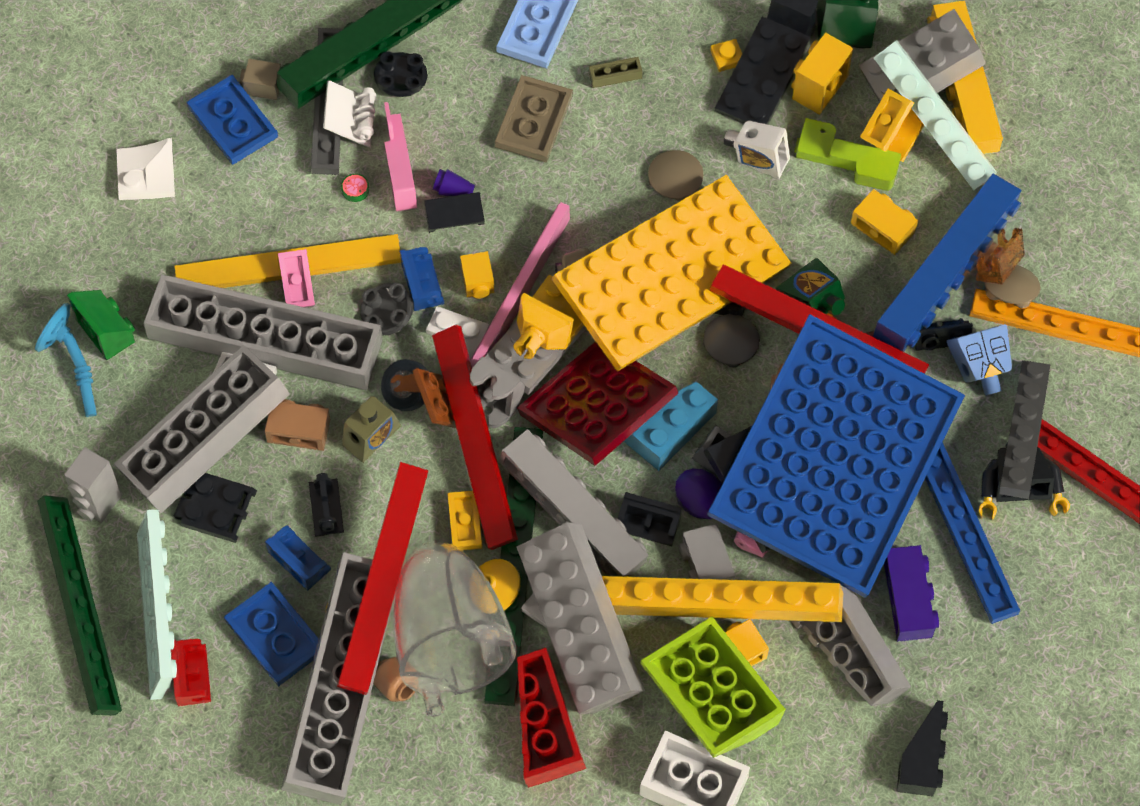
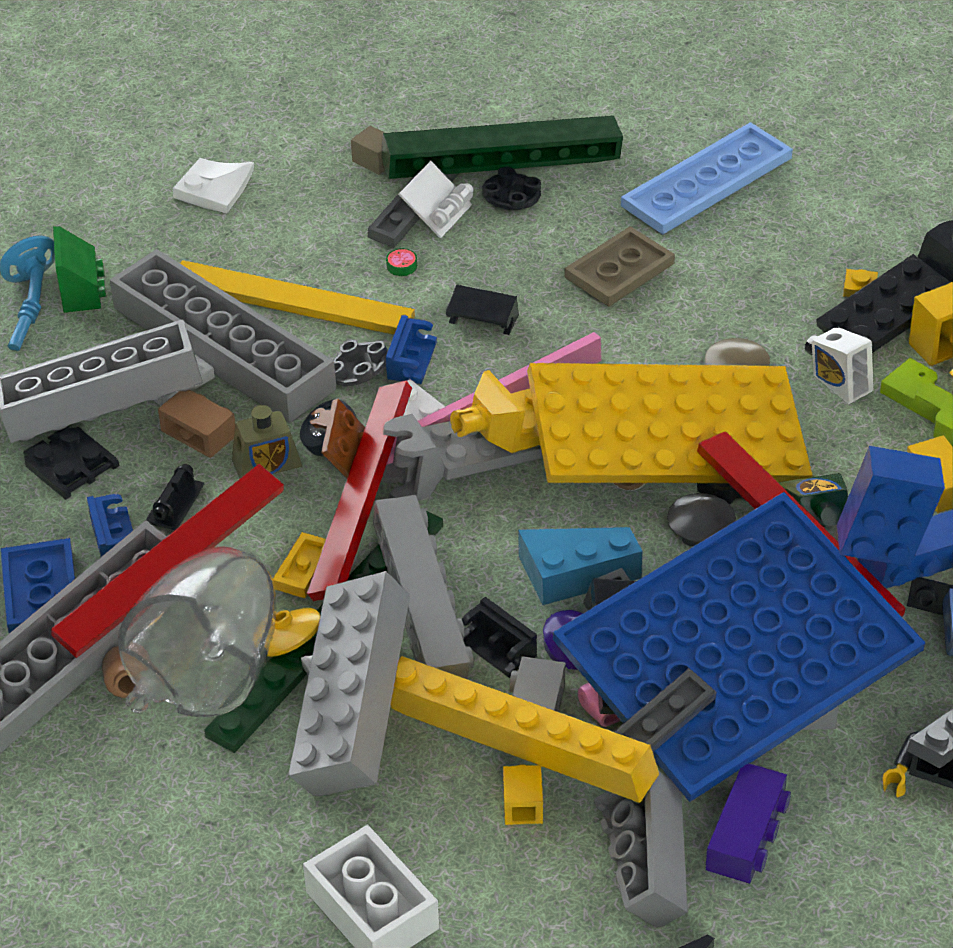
camera: 30 degrees right, 20 degrees down
(232, 119) = (323, 171): blue plate -> none
(296, 278) = (288, 301): bright pink plate -> none
(399, 163) = (447, 262): bright pink piece -> none
(451, 184) = (496, 282): dark purple cone -> none
(477, 275) = (467, 365): yellow brick -> none
(545, 722) = (247, 781): red wedge -> none
(594, 405) = (510, 509): dark red plate -> none
(615, 72) = (730, 258): olive piece -> none
(714, 688) = (452, 813): lime slope -> none
(821, 542) = (669, 710): none -> dark grey tile
(902, 303) = (890, 506): none -> blue brick
(970, 539) = (856, 796): blue plate -> none

